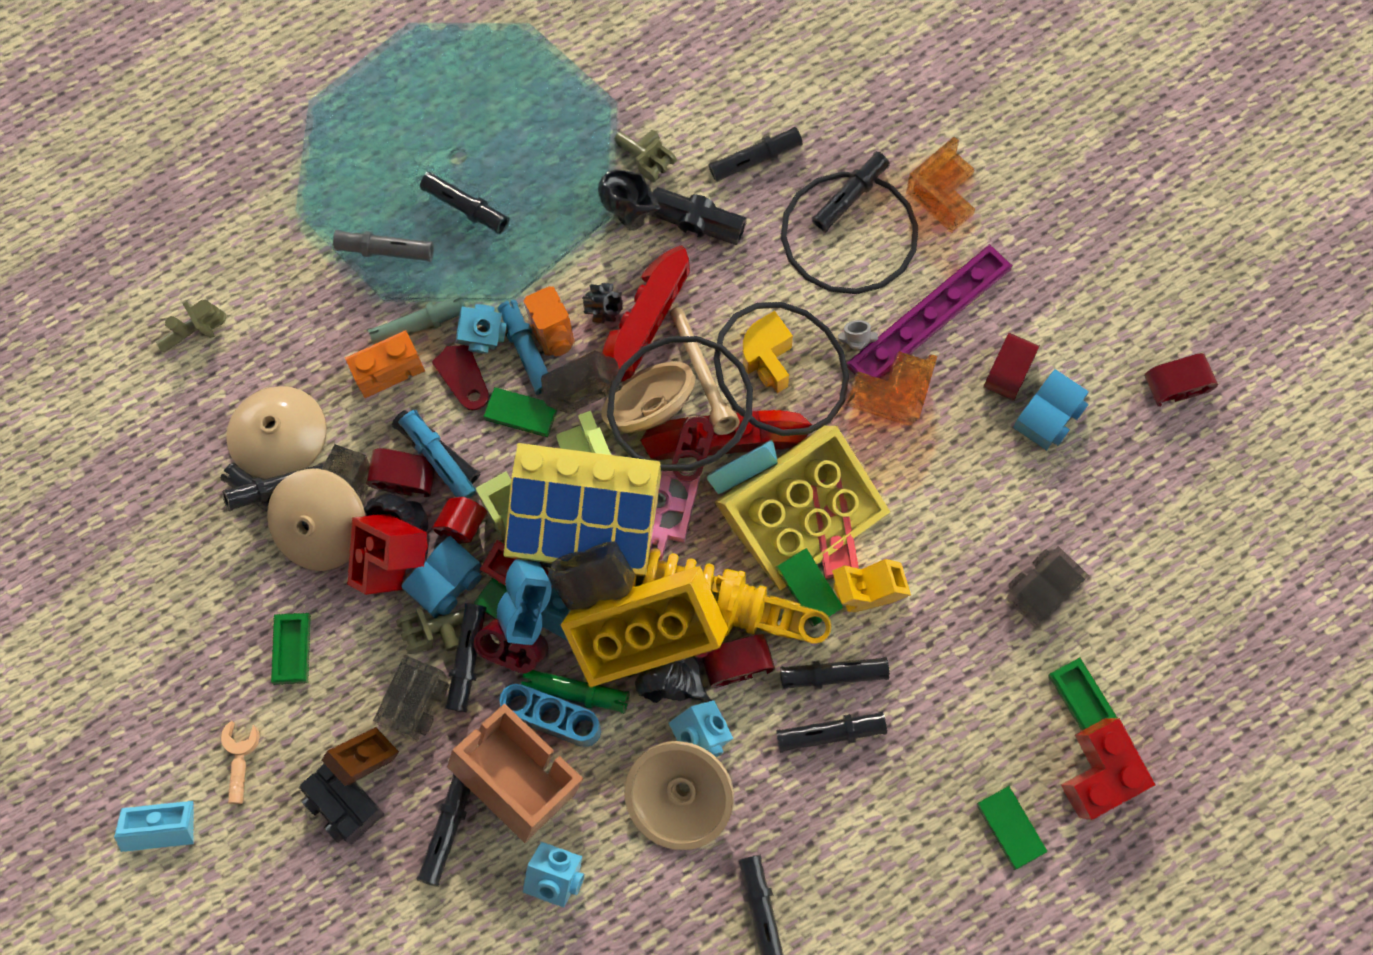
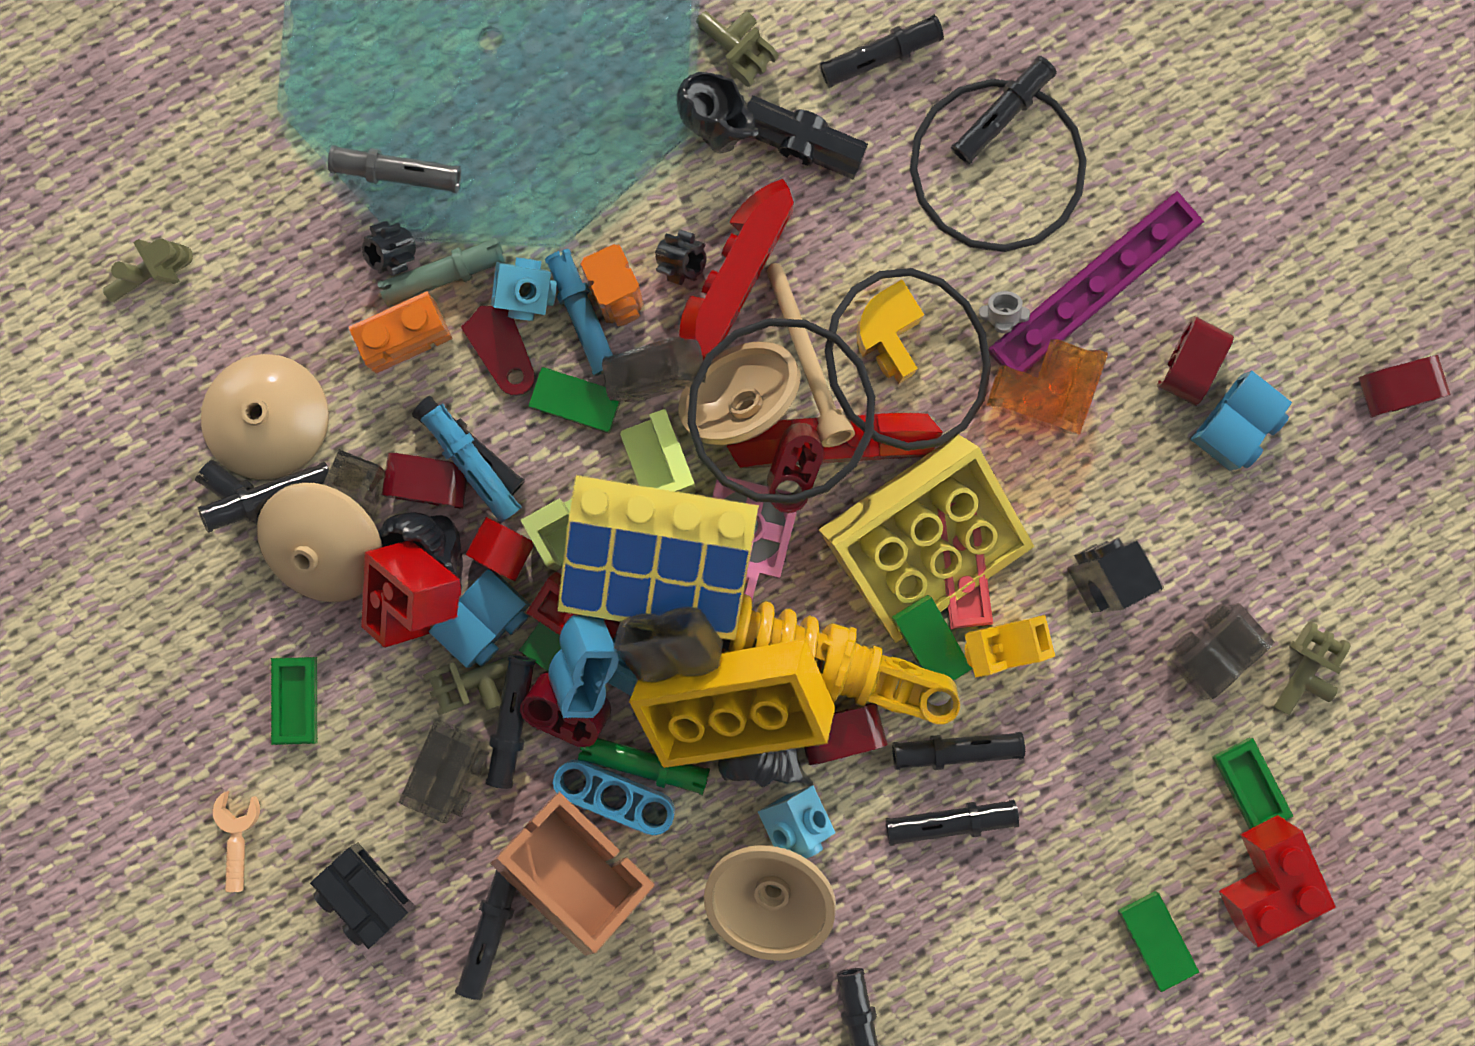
camera: 10 degrees left, 15 degrees up
(155, 826) = (138, 915): medium azure slope -> none
(360, 756) = (383, 846): reddish brown plate -> none
(377, 303) = (389, 248): none -> black gear
(475, 208) = (515, 121): black pin -> none
(553, 874) = (619, 992): medium azure brick -> none
(743, 467) = (858, 488): medium azure slope -> none
(935, 185) = (1111, 107): clear orange panel -> none
(949, 520) = (1114, 575): none -> black arch
(1118, 606) = (1304, 676): none -> olive arm

